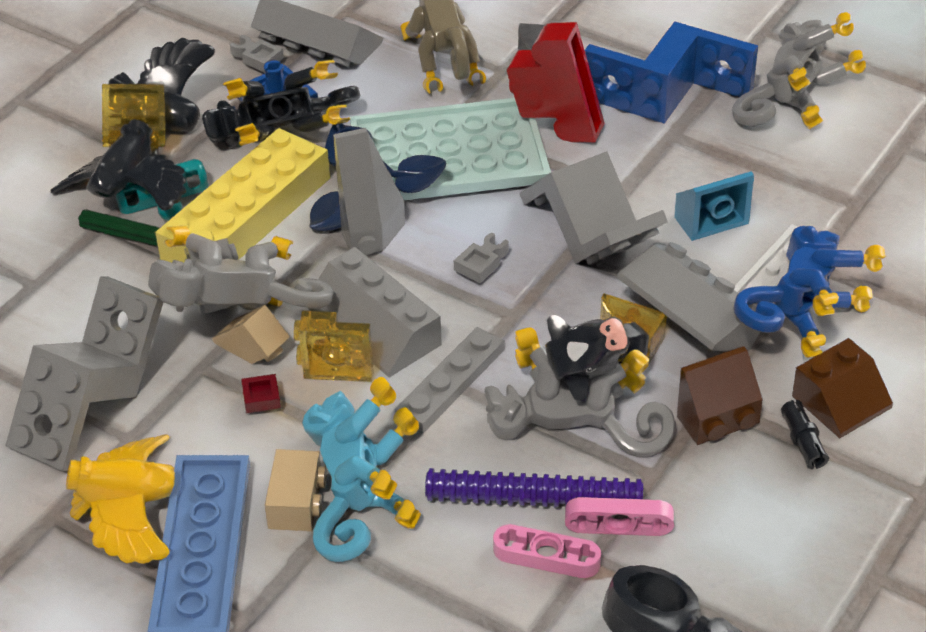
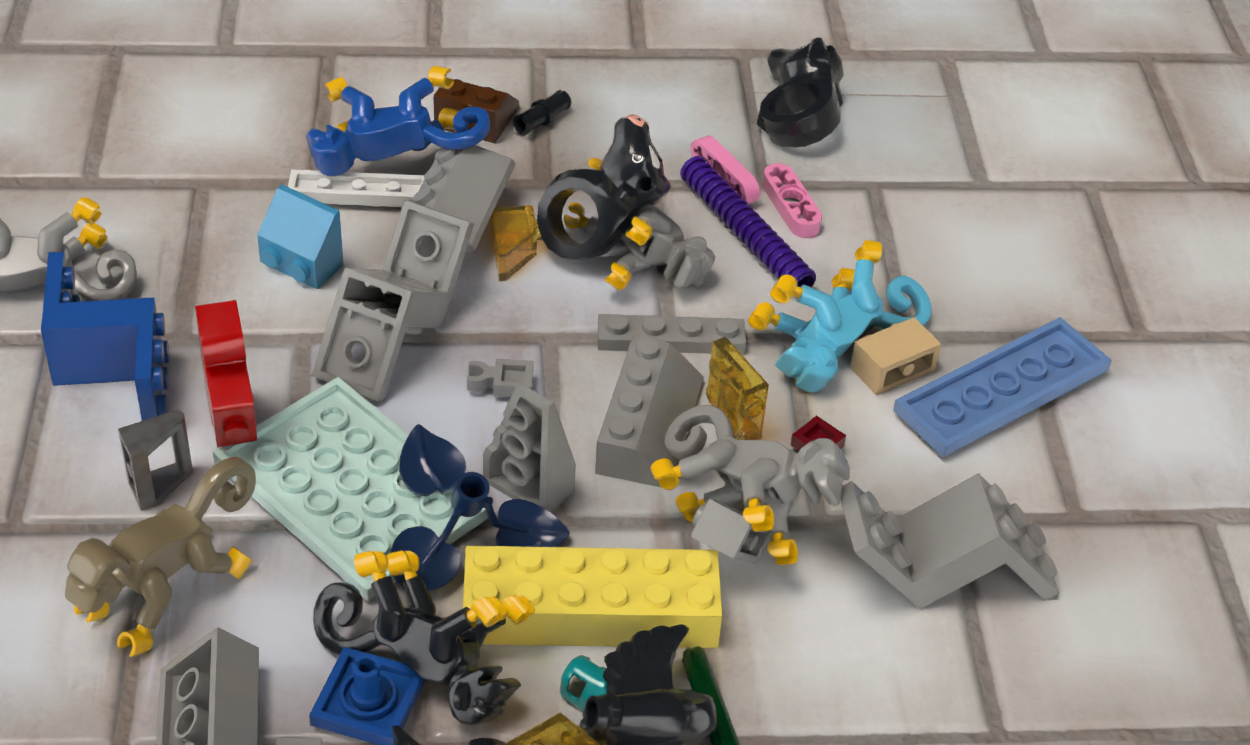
camera: 130 degrees left, 0 degrees up
(117, 494) = (1022, 450): yellow animal -> none
(719, 396) = (552, 150): reddish brown slope -> none

